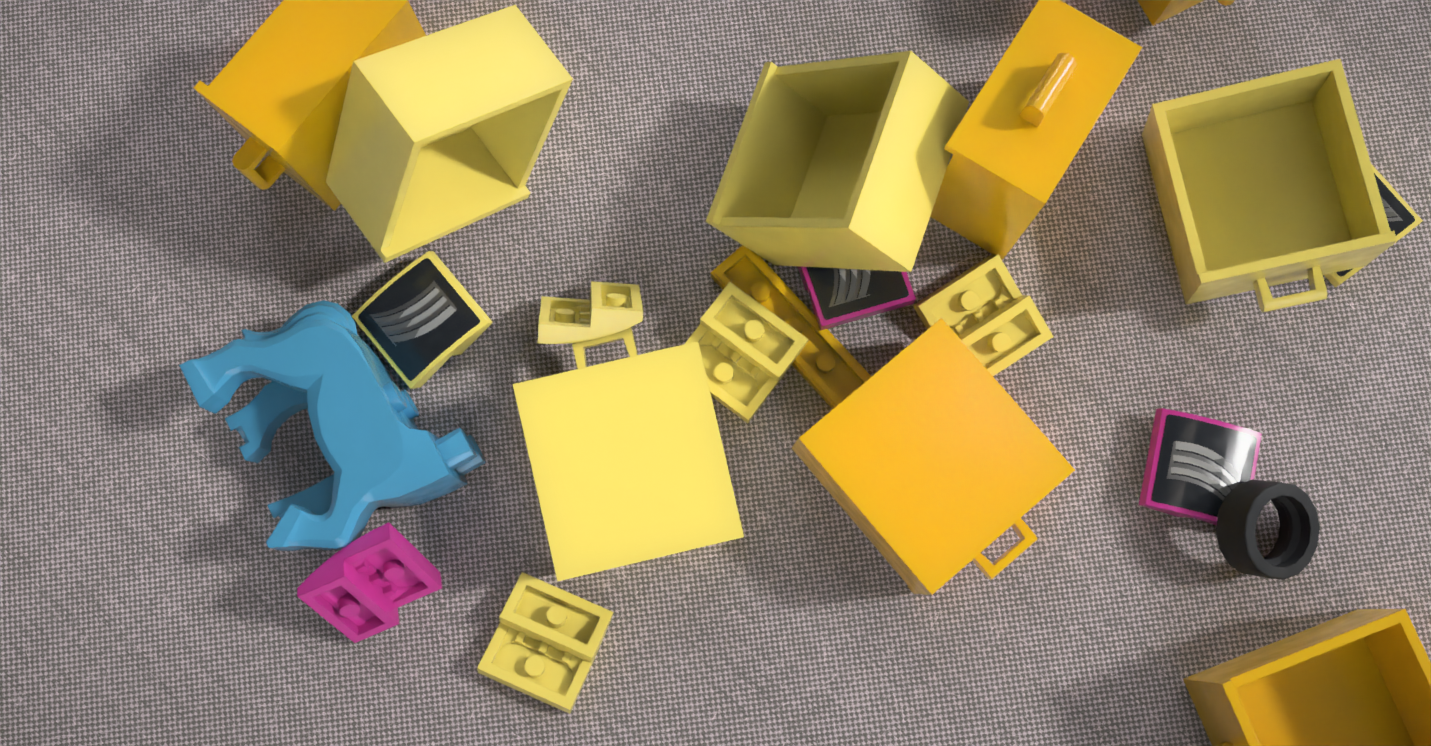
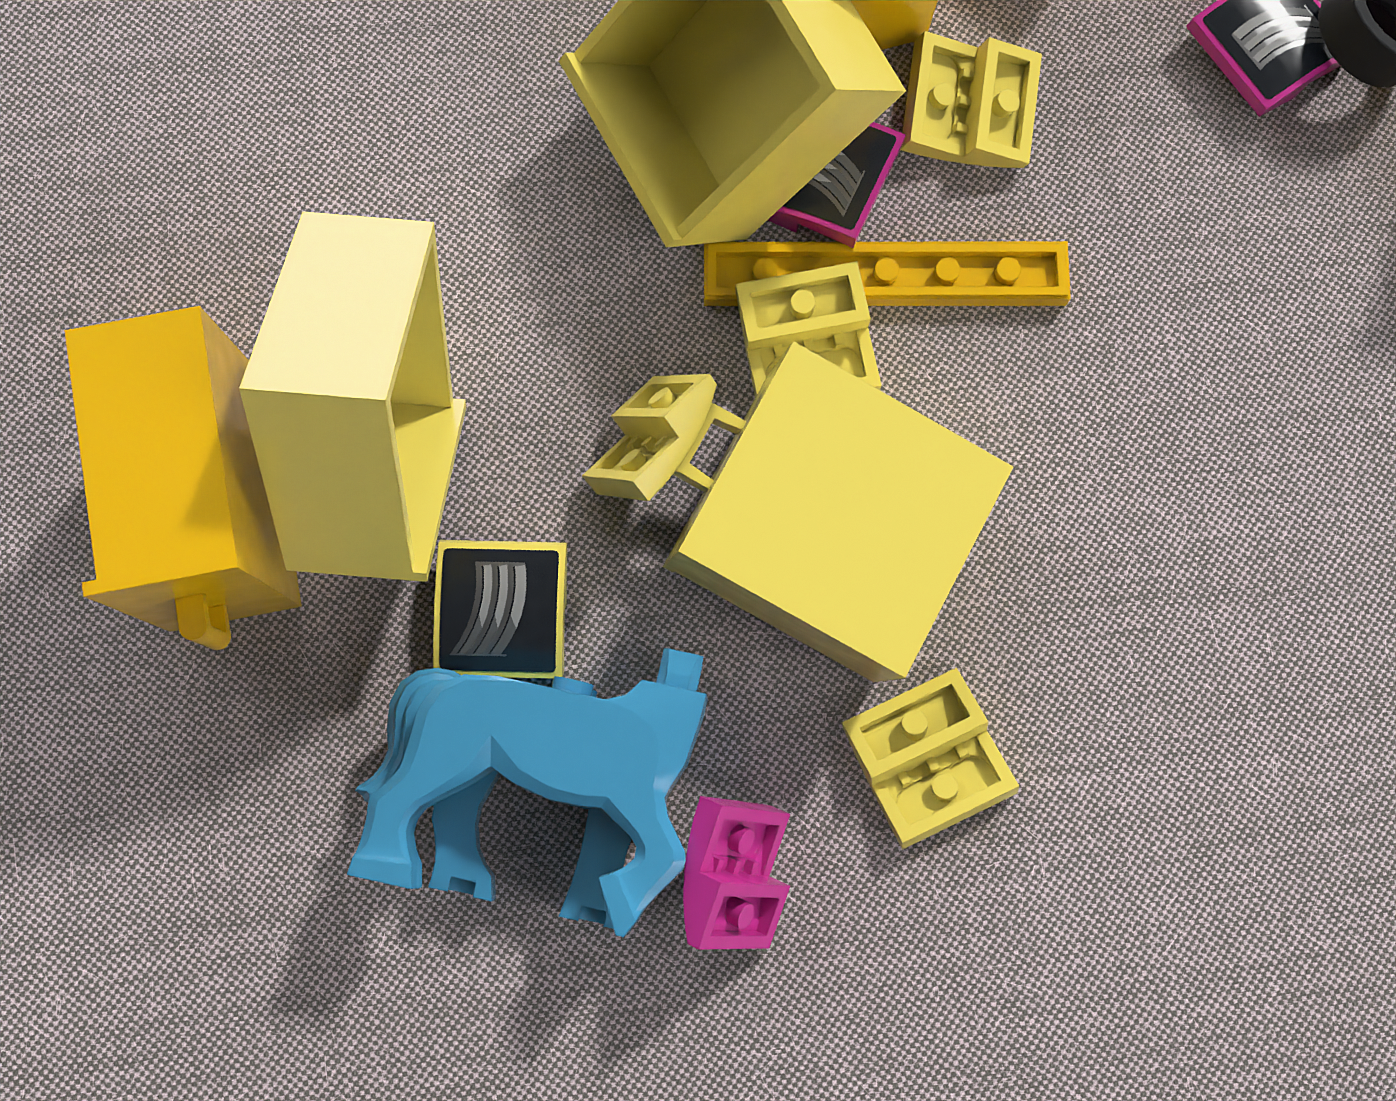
camera: 55 degrees left, 0 degrees up
(934, 461) = (1079, 245): yellow container -> none

